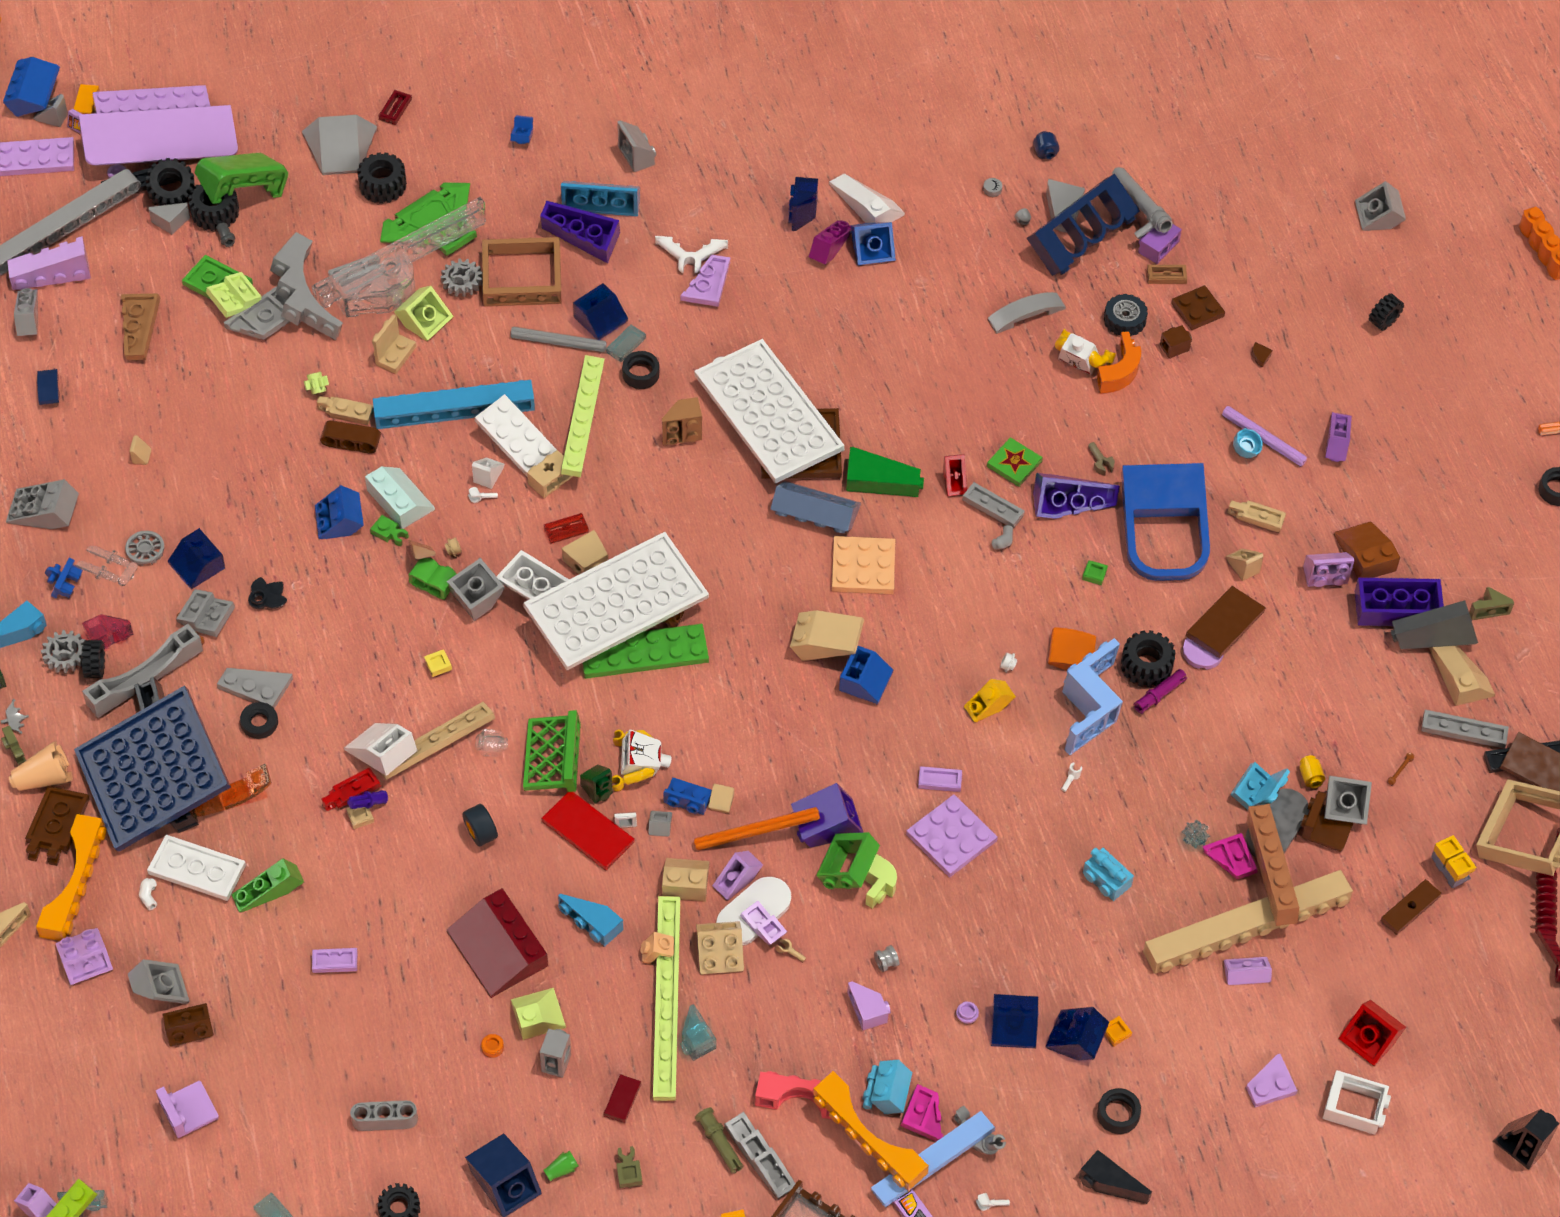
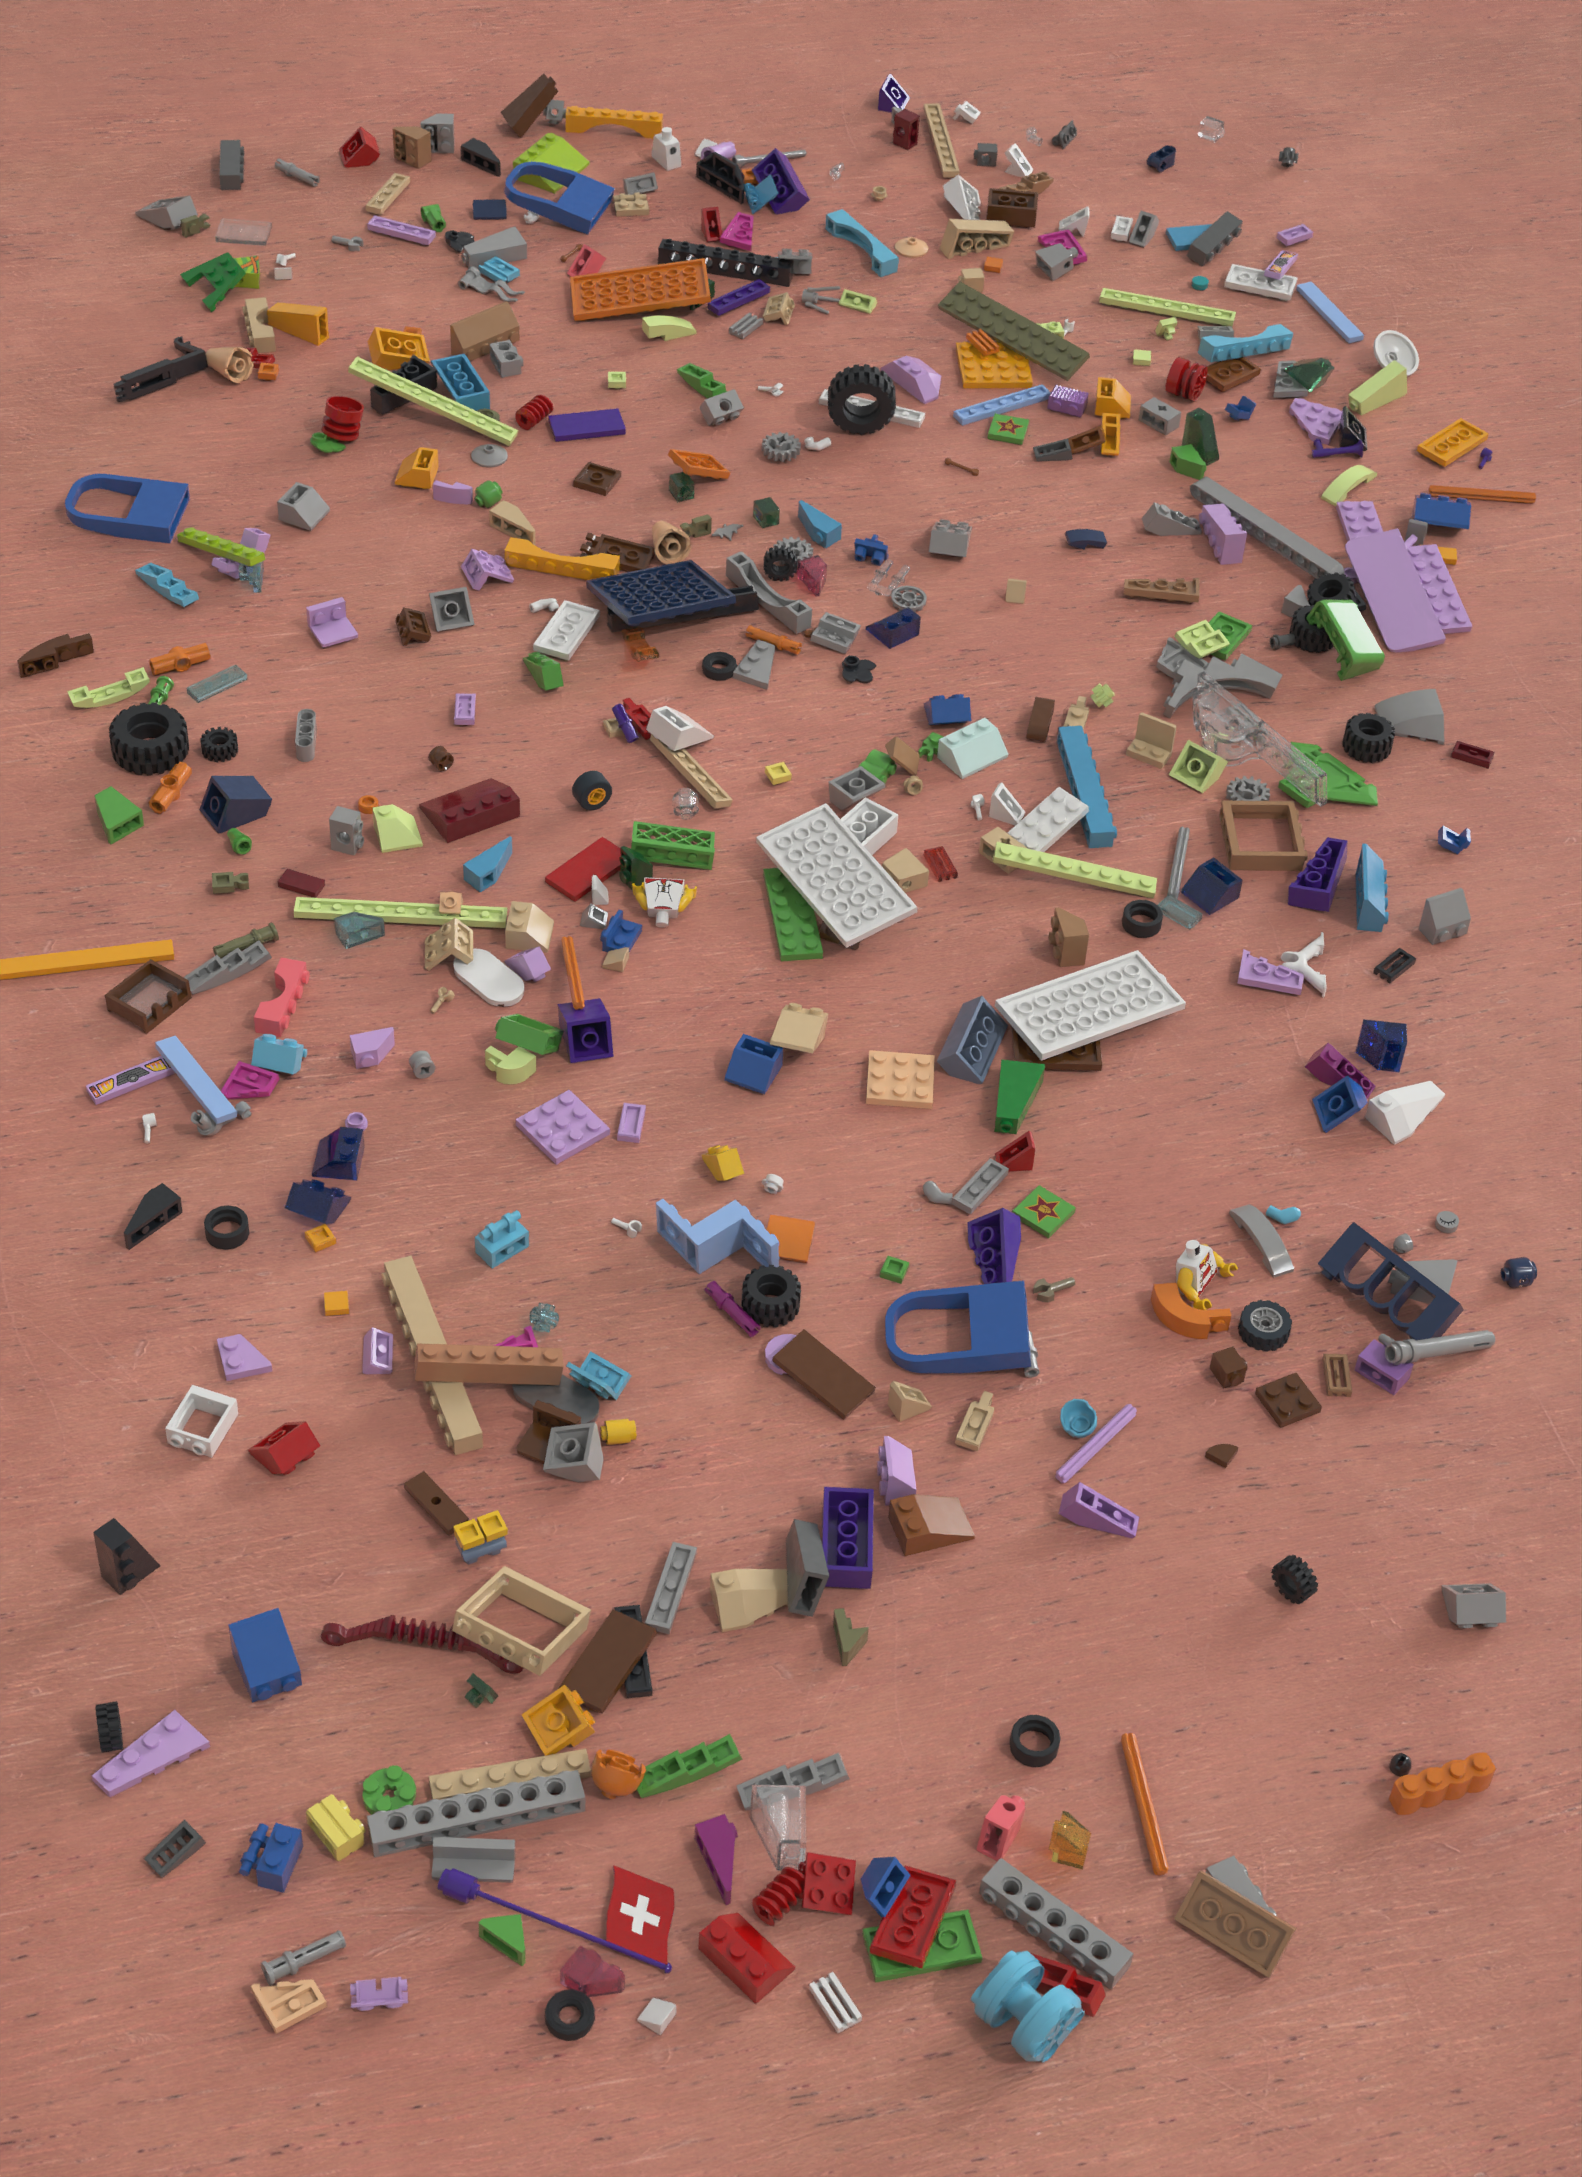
camera: 90 degrees right, 10 degrees down
(220, 663) = (780, 642): none -> orange pin
(422, 976) = (441, 758): none -> reddish brown wheel
(684, 193) = (1404, 963): none -> black tile
(763, 924) = (468, 978): lavender slope -> none
(901, 1163) = (259, 1004): light orange arch -> none
(1000, 290) = (1284, 1216): none -> medium azure arm
(1195, 1008) = (336, 1303): none -> light orange tile
(1409, 758) = (638, 1533): dark orange hinge -> none
(1528, 268) = (1405, 1768): none -> black hinge

